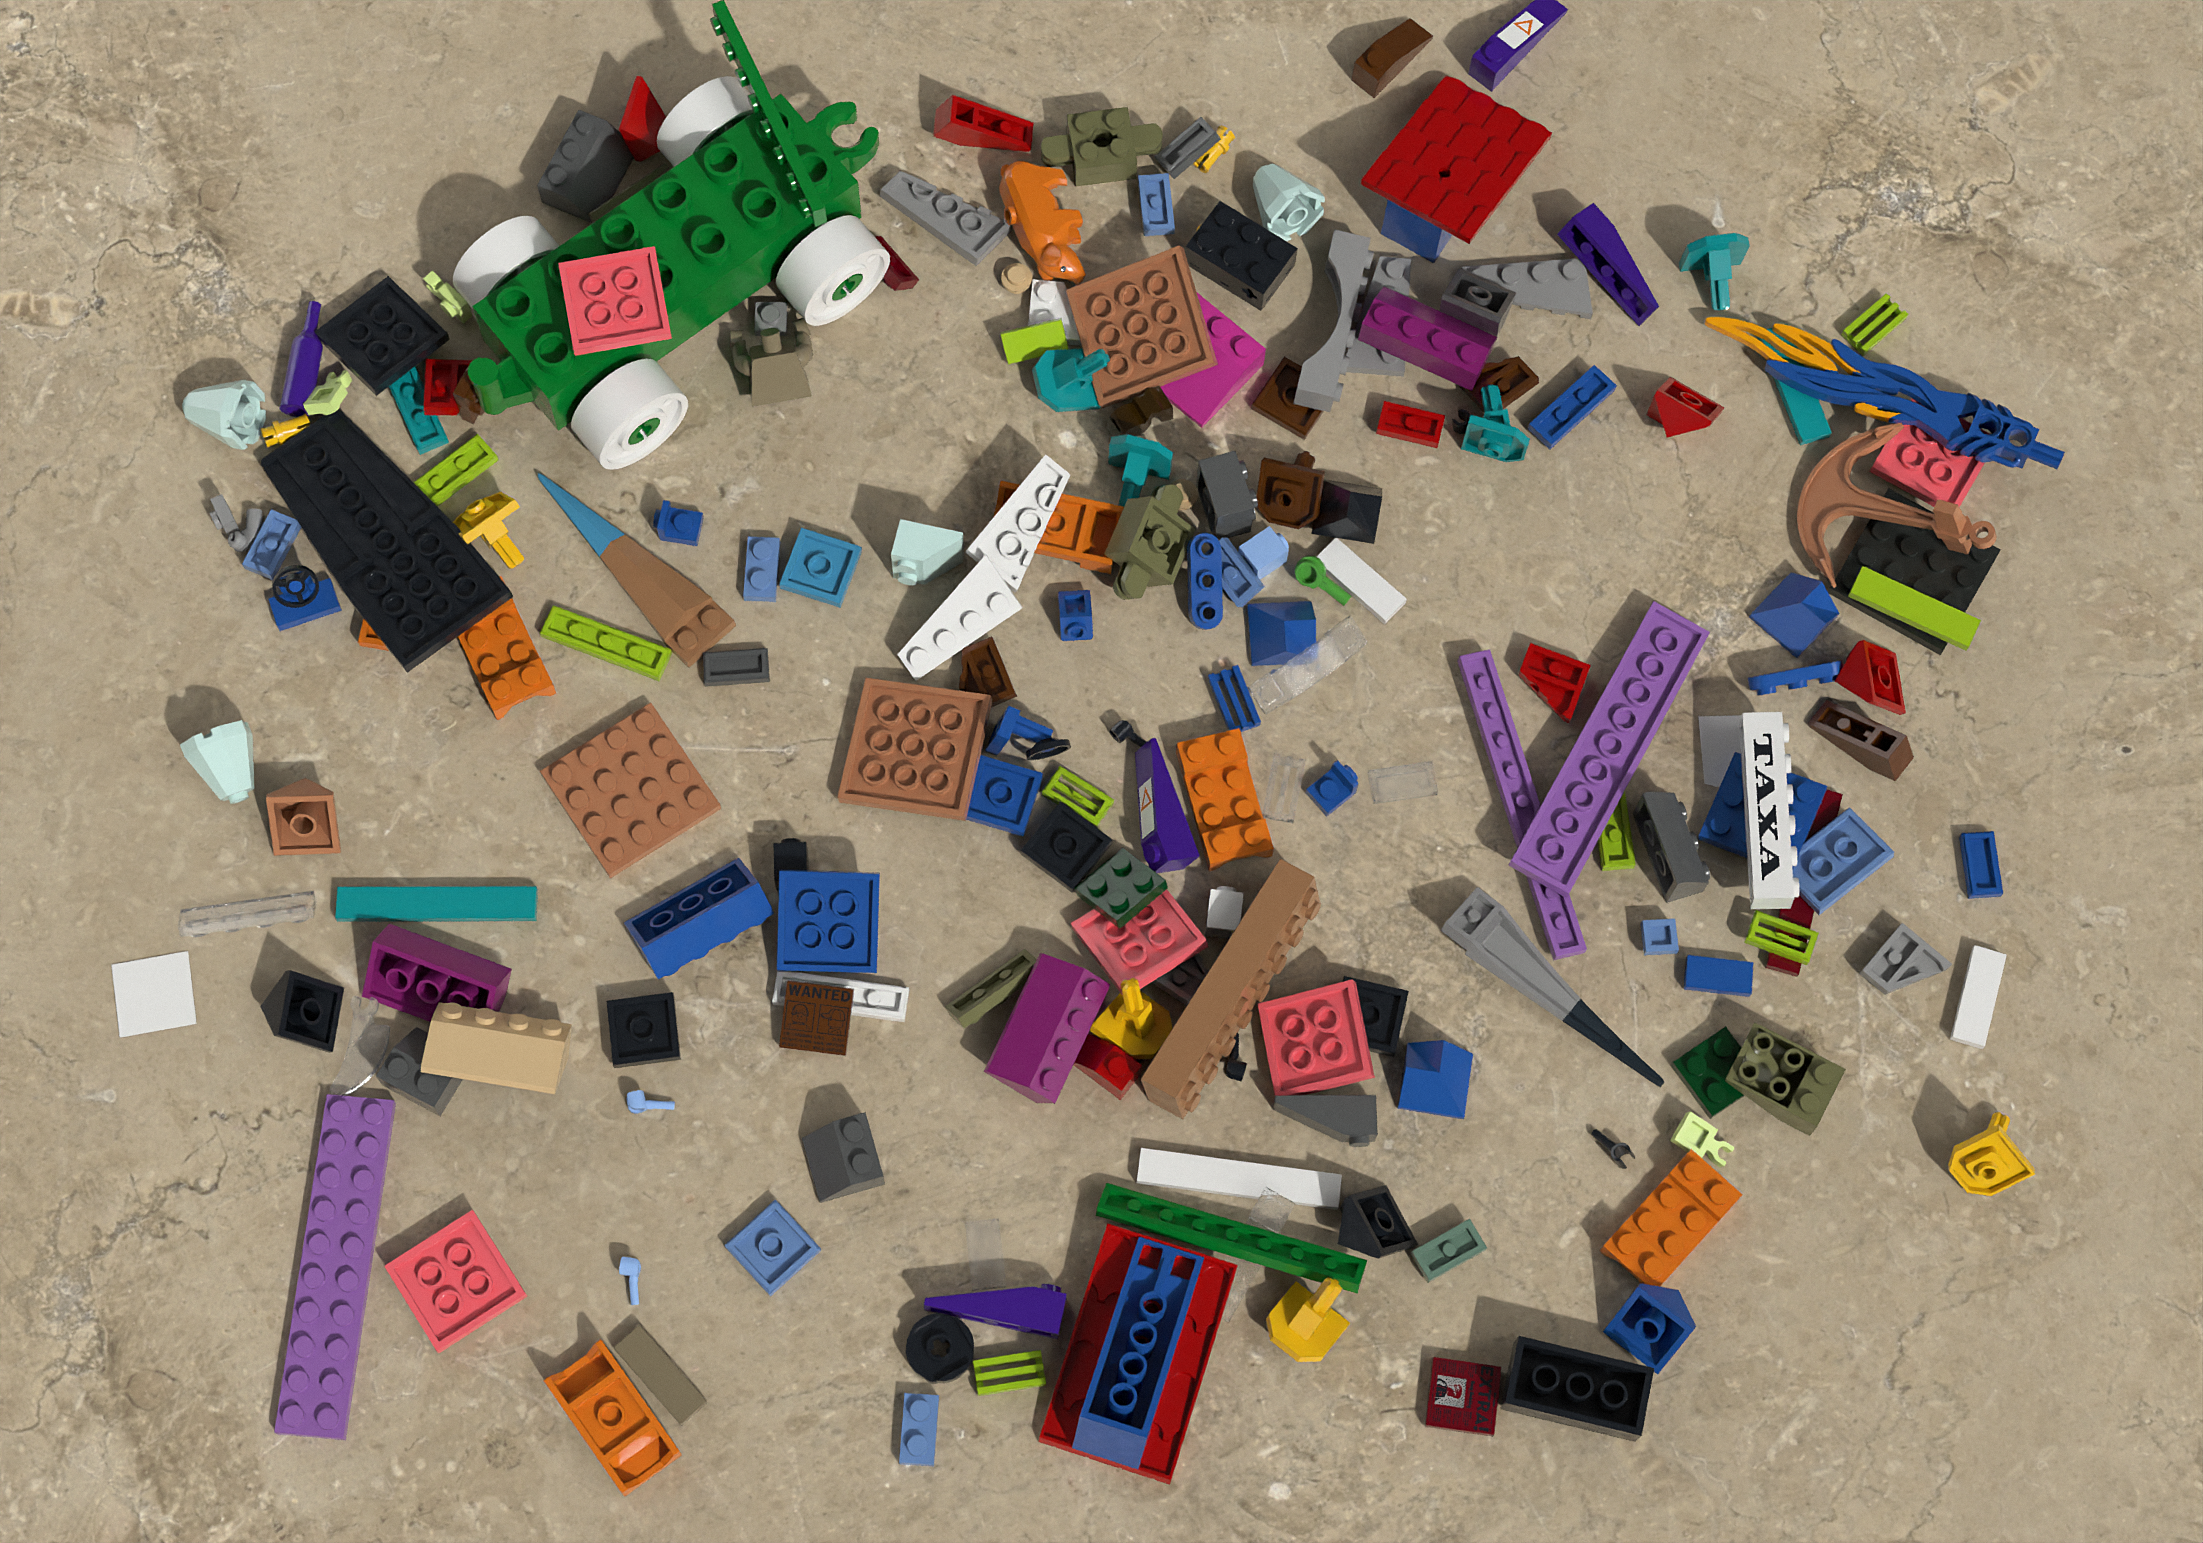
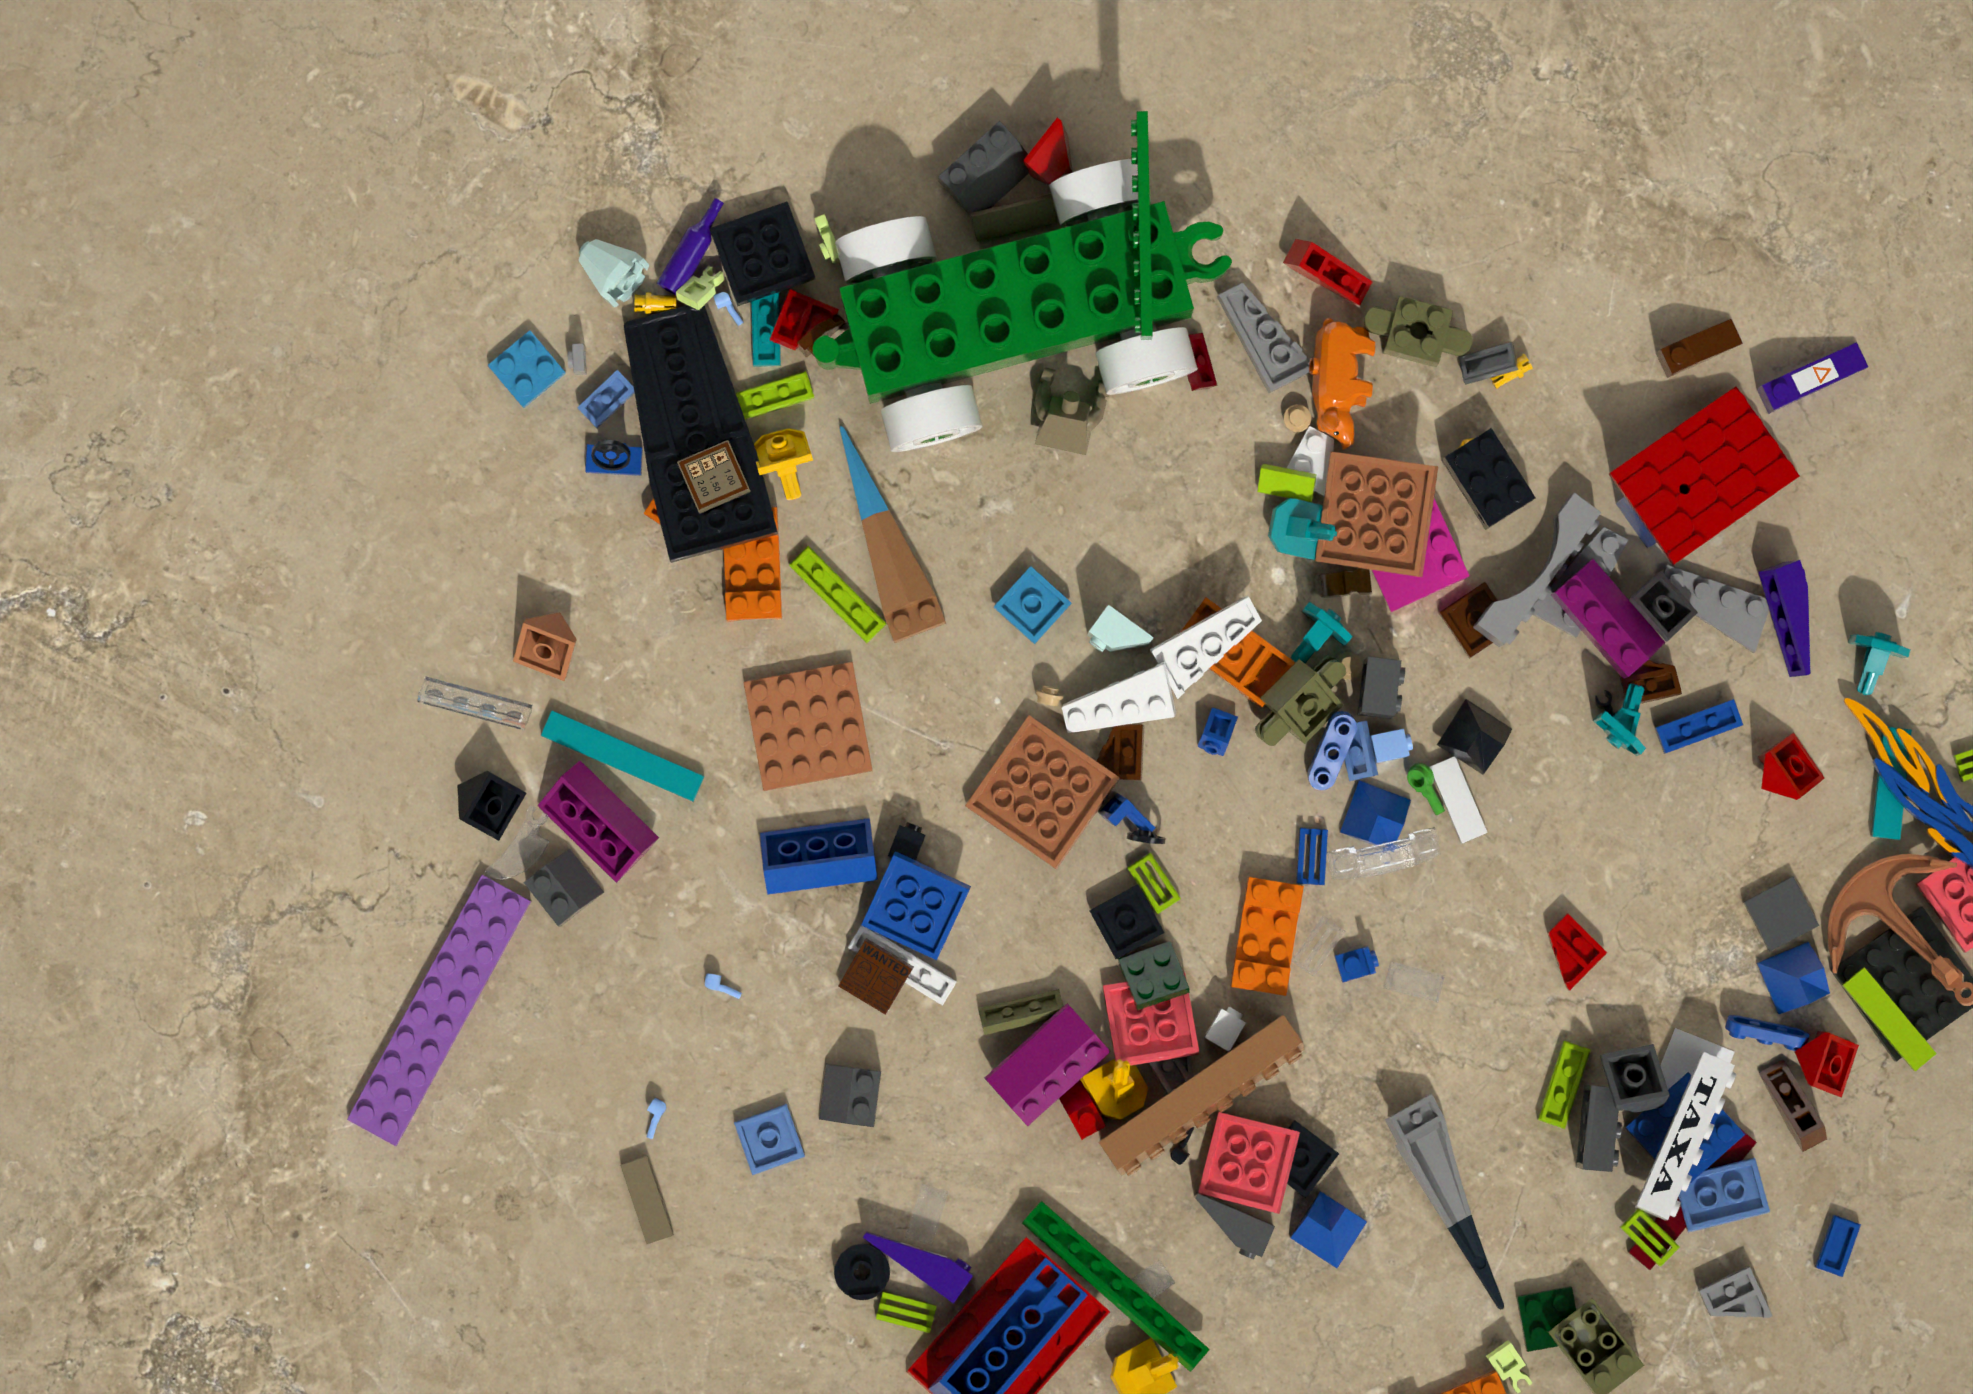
camera: 25 degrees right, 15 degrees up
(153, 994) = (380, 734): white sticker -> none
(172, 551) = (526, 369): none -> dark azure plate
(224, 760) = (502, 571): light aqua cone -> none
(243, 540) = (591, 382): light grey arm -> none
(359, 399) = (723, 300): none -> light blue hand
(417, 564) = (713, 476): none -> tile
(455, 1281) = (523, 1063): coral plate -> none
(496, 1047) = (622, 899): tan slope -> none
(613, 1418) = (598, 1219): orange piece -> none
(614, 301) = (952, 341): coral plate -> none
(643, 1030) = (740, 928): black plate -> none
(678, 524) = (935, 518): blue bracket -> none
(736, 667) = (931, 659): dark grey tile -> none
(761, 569) = (985, 584): medium blue plate -> none
(771, 316) = (1082, 368): light grey plate -> none
(878, 650) = (1049, 696): none -> tan plate
(919, 1429) = (821, 1324): medium blue plate -> none
(1003, 795) = (1096, 858): blue plate -> none
(1122, 730) = (1212, 844): black hand -> none
(1156, 204) = (1440, 401): medium blue plate -> none
(1163, 826) = (1209, 937): dark purple slope -> none
(1237, 1178) = (1143, 1240): white tile -> none
(1286, 201) = (1546, 446): light aqua cone -> none
(1290, 492) = (1435, 705): reddish brown piece -> none
(1374, 1224) = (1229, 1324): black slope -> none
(1410, 424) = (1560, 685): red plate -> none
(1448, 1250) = (1276, 1366): sand green plate -> none
(1517, 792) = (1498, 1040): medium lavender plate -> none
(1609, 749) = (1589, 1028): medium lavender plate -> none
(1616, 1150) = (1440, 1344): black hand -> none
(1659, 937) = (1555, 1194): medium blue plate -> none
(1687, 773) = (1635, 1078): none -> dark grey slope
(1718, 975) = (1586, 1244): blue tile -> none
(1748, 556) = (1781, 913): none -> dark grey tile
(1978, 997) = (1781, 1348): white tile -> none

